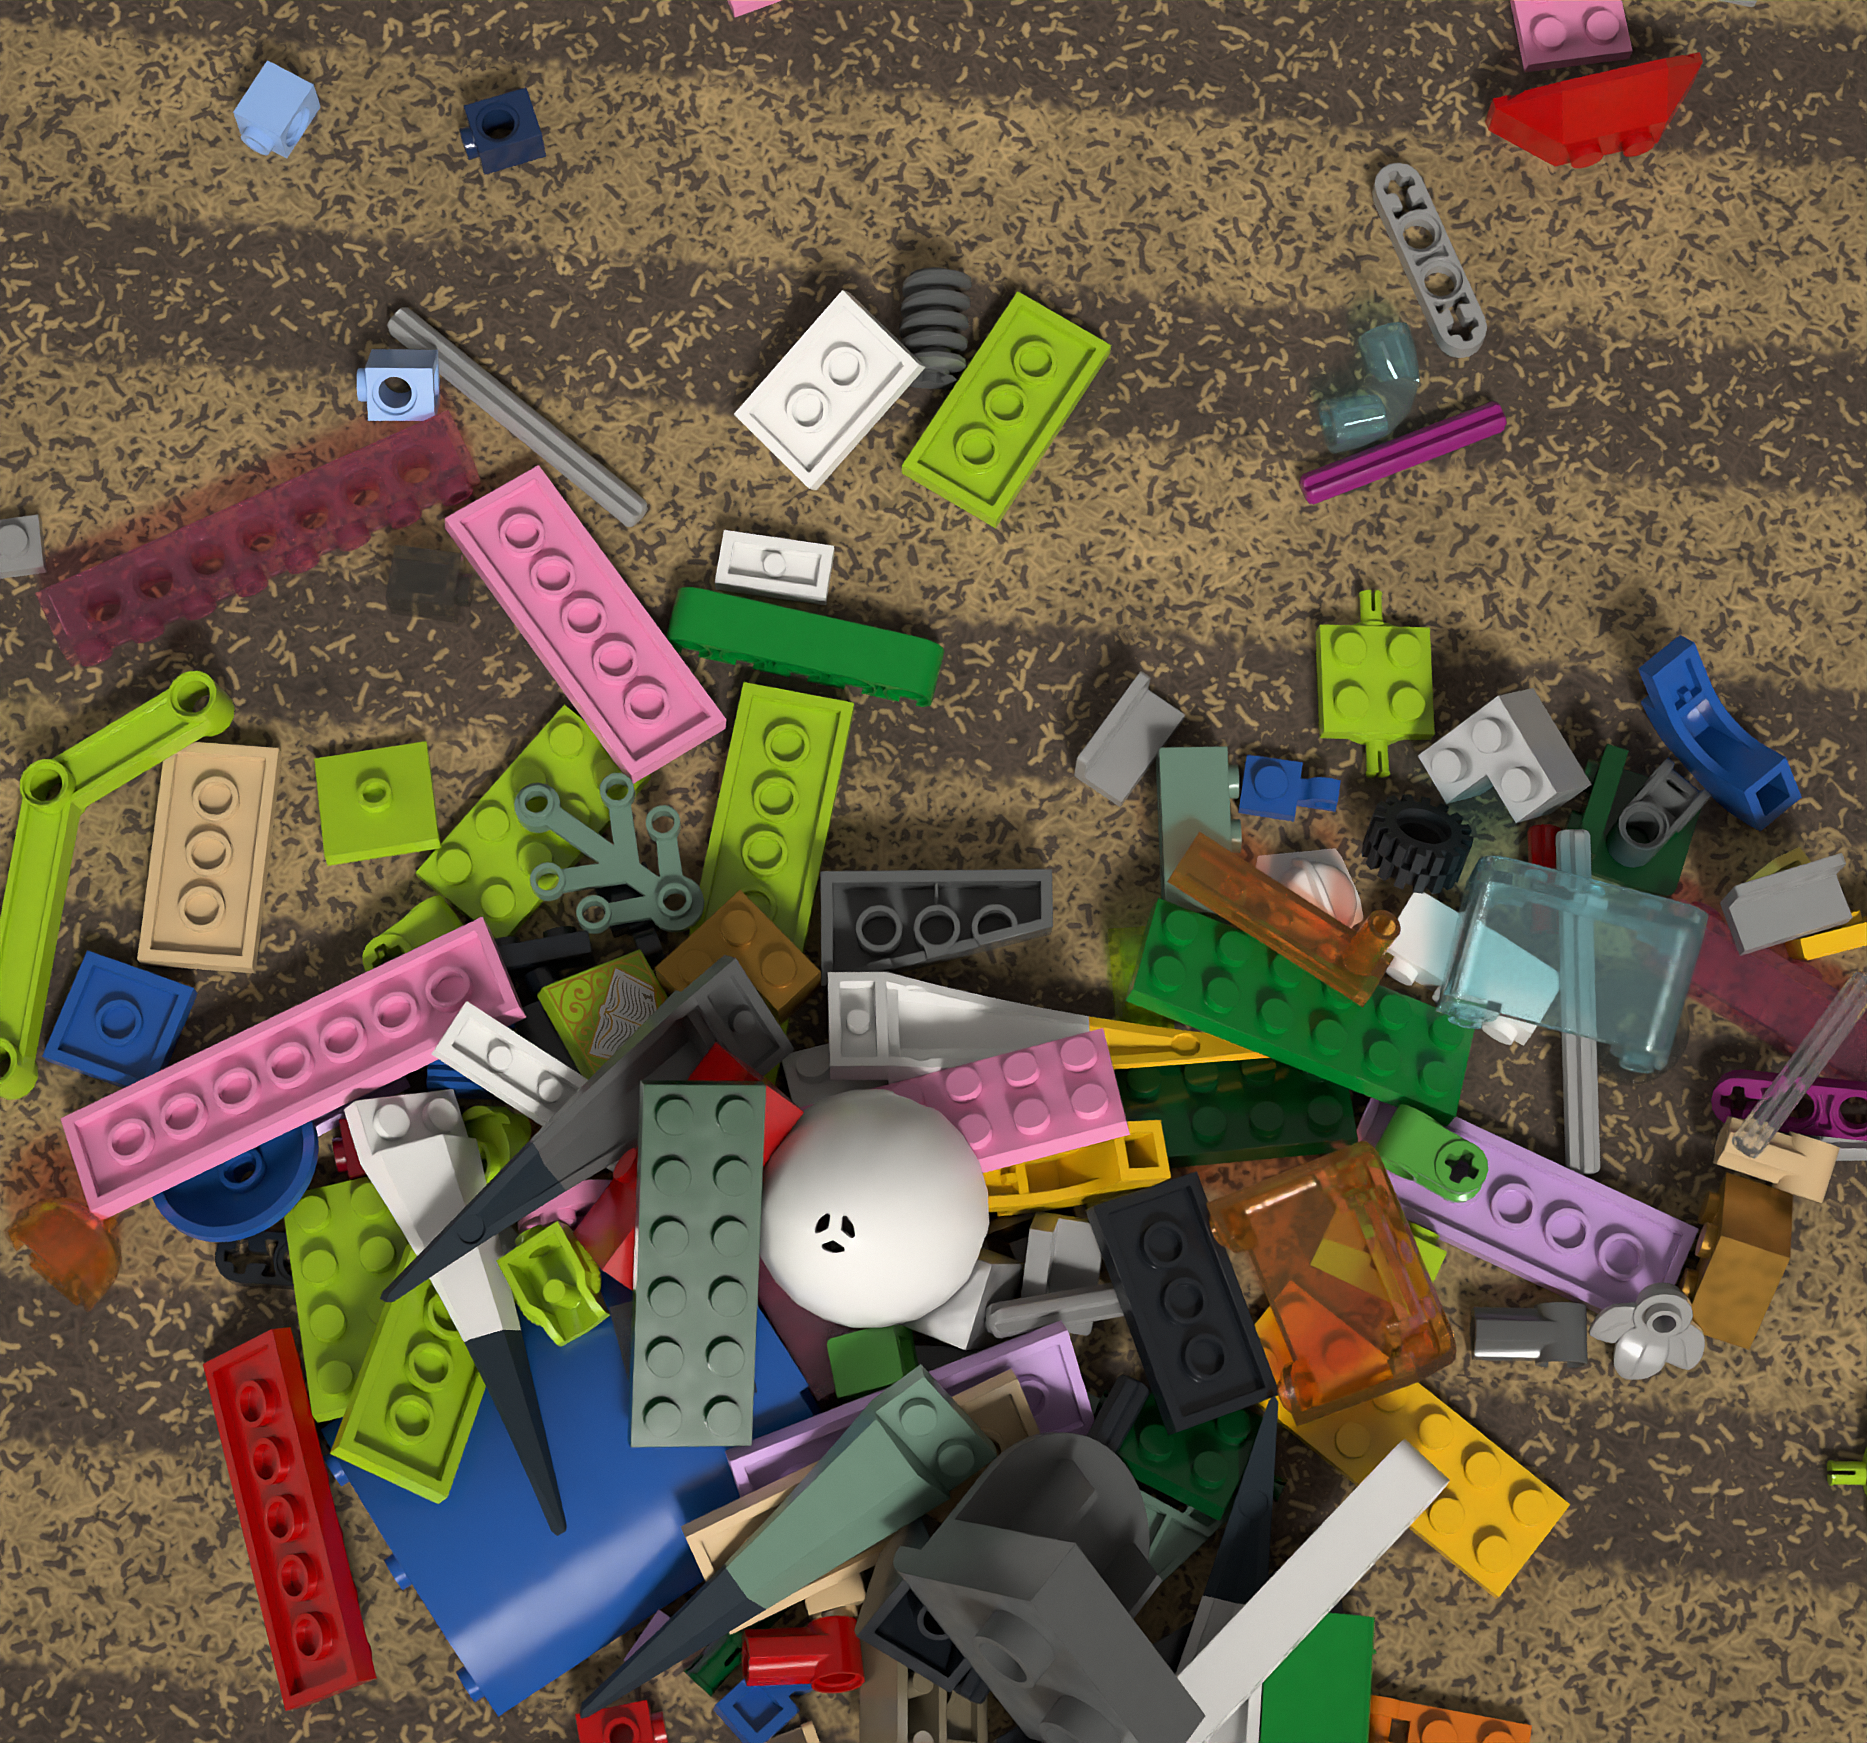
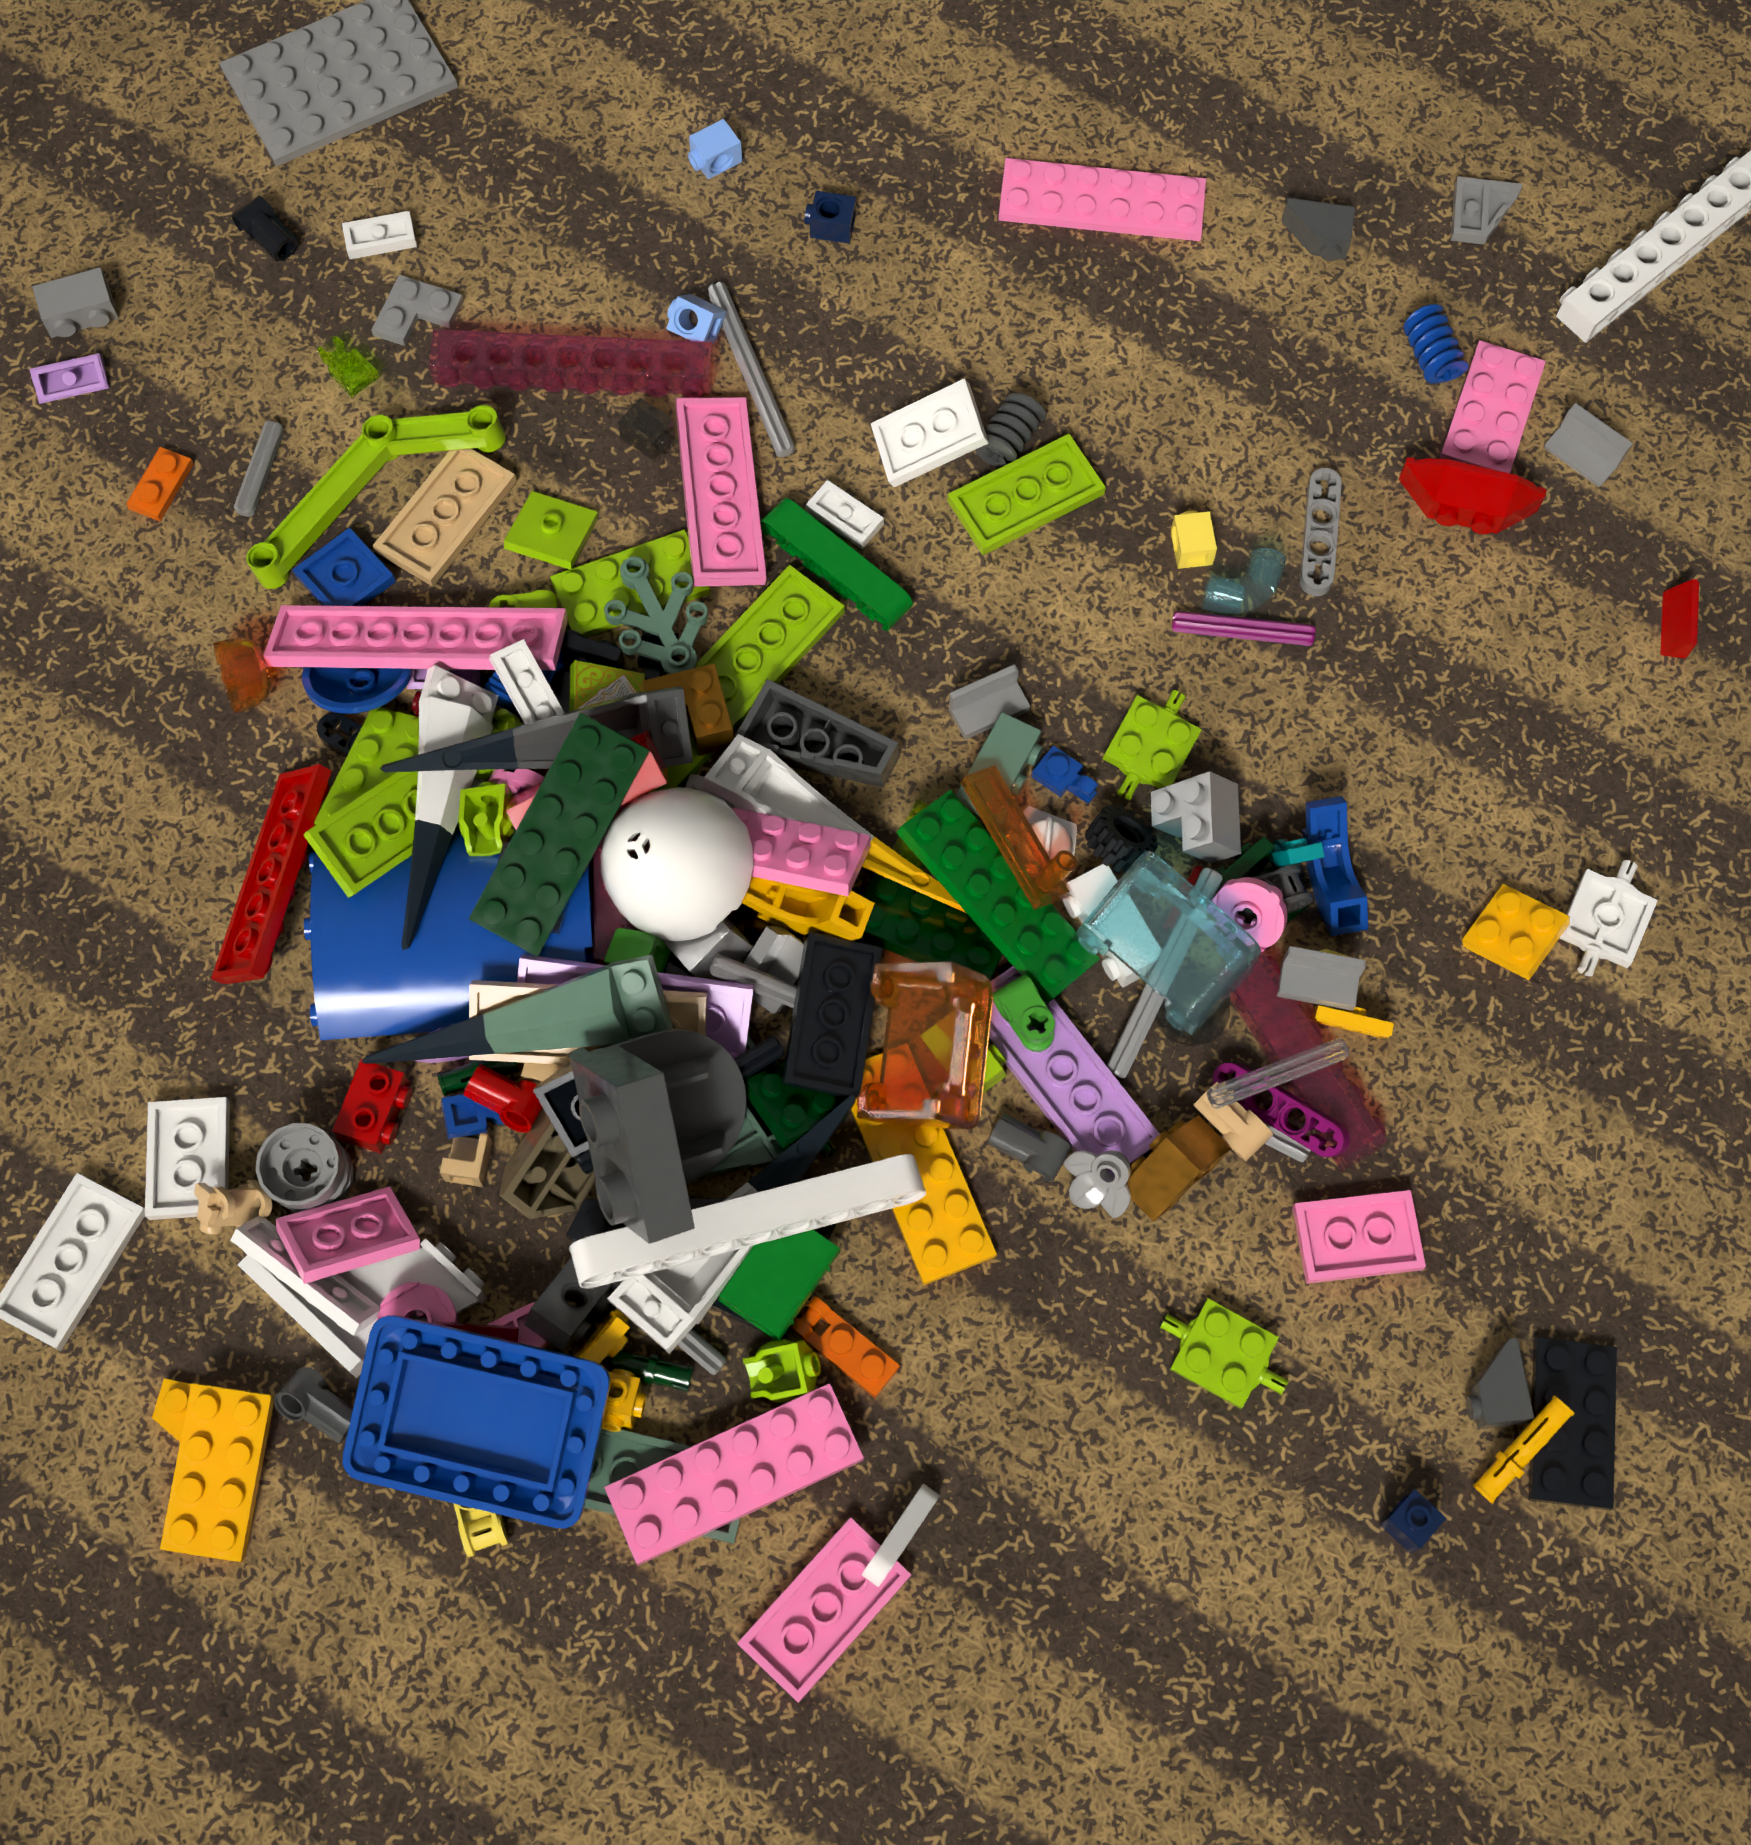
camera: 30 degrees right, 5 degrees down
(1269, 359) = (1193, 539): none -> light yellow brick
(1657, 743) = (1294, 852): none -> teal plate
(1657, 838) = (1263, 900): none -> bright pink plate

